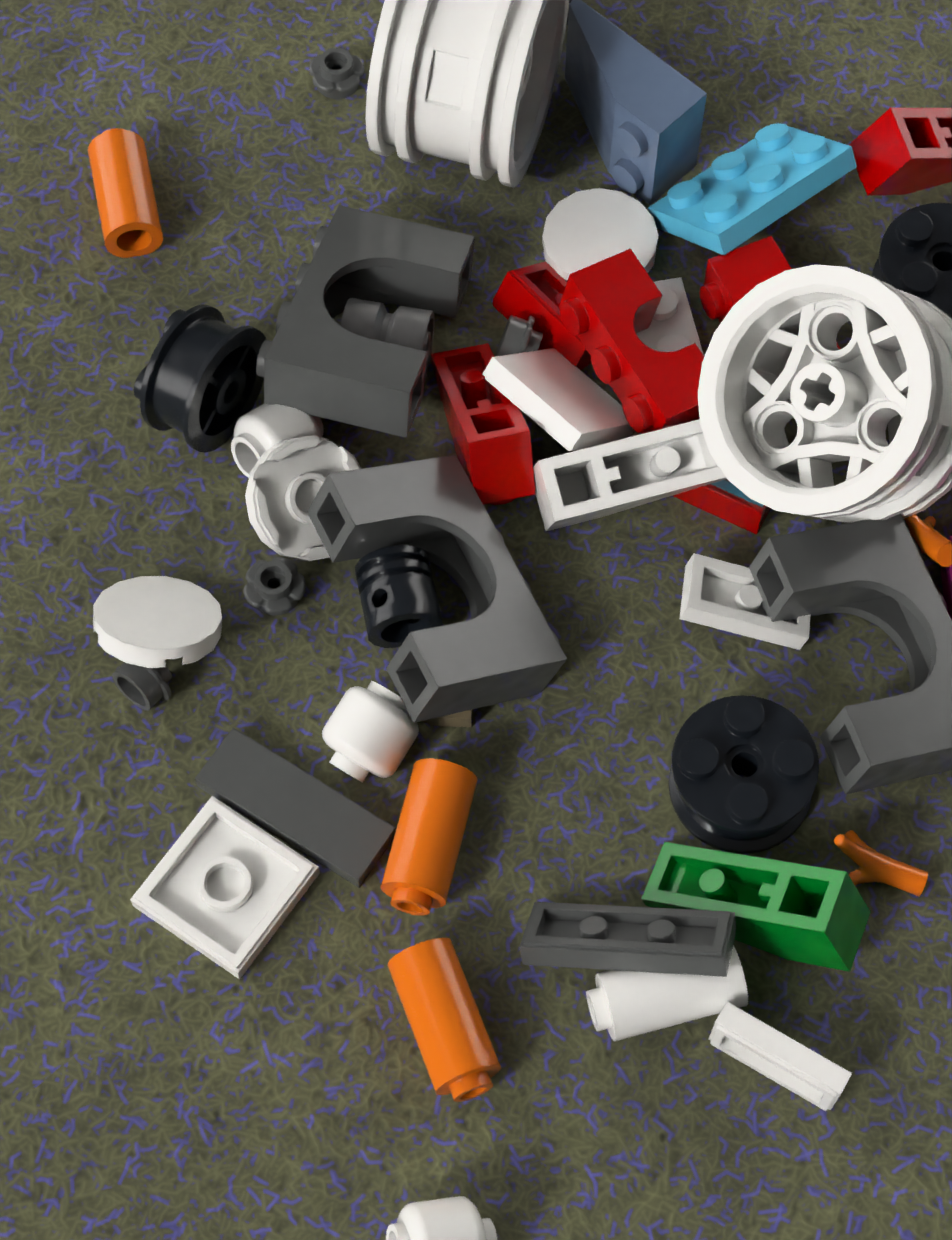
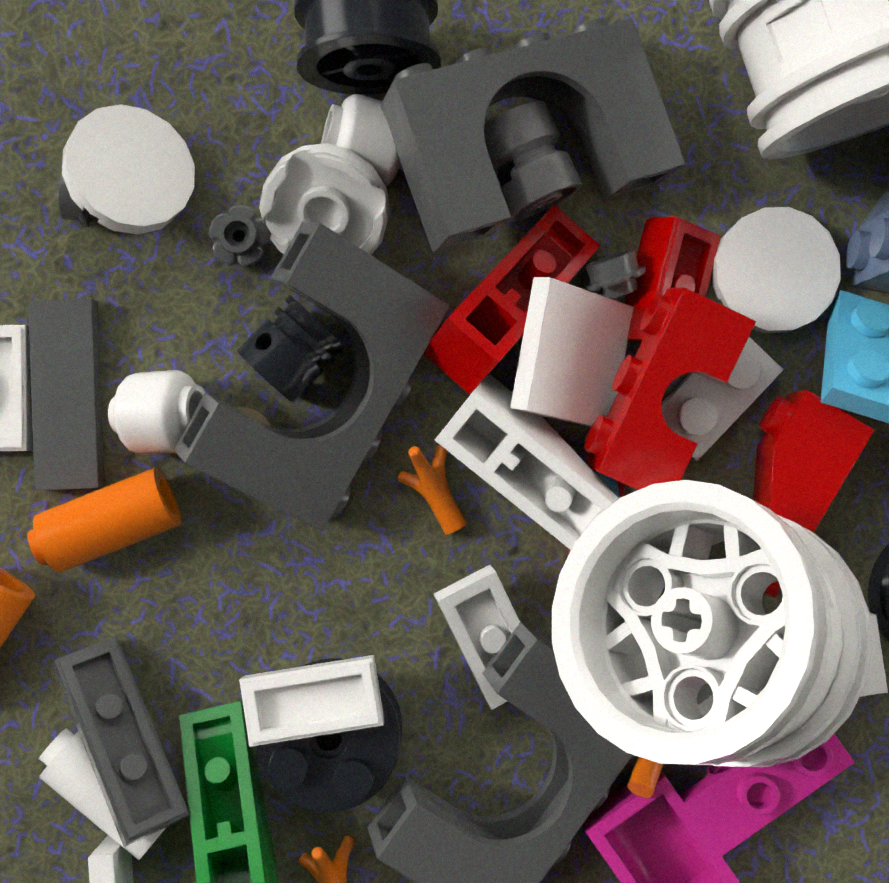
camera: 50 degrees right, 25 degrees up
(593, 575) = (434, 487): none -> orange bar
(702, 739) = (311, 700): none -> white tile

